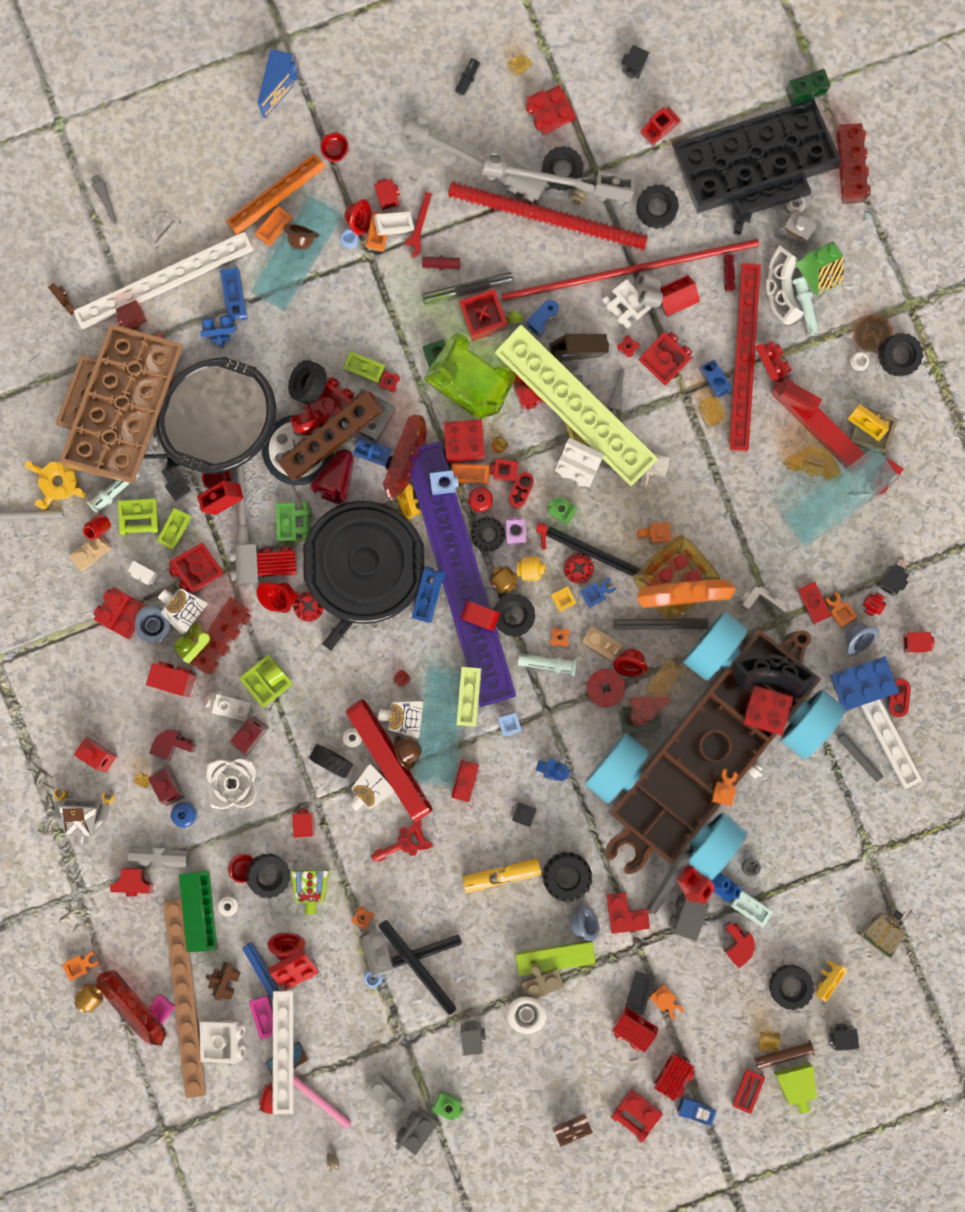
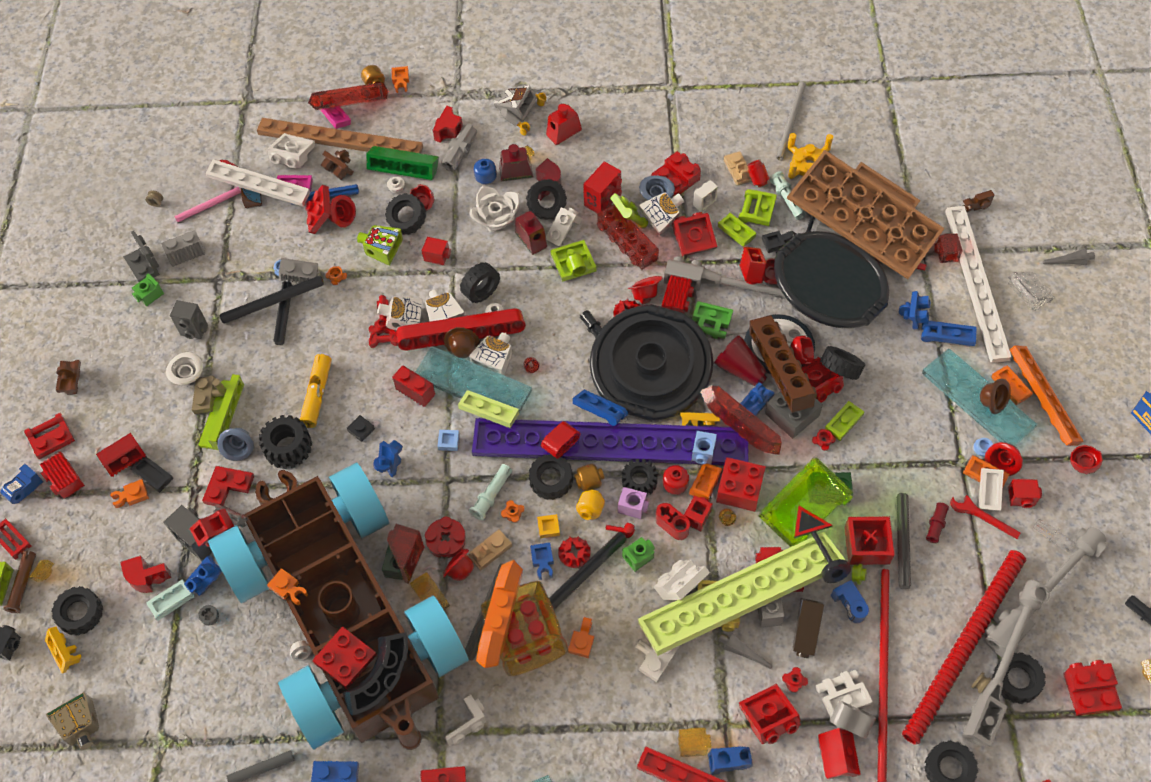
camera: 110 degrees right, 25 degrees down
(199, 747) = (546, 185): none -> black tyre
(391, 825) = (401, 311): none -> white torso
(491, 366) = (810, 523): none -> black piece

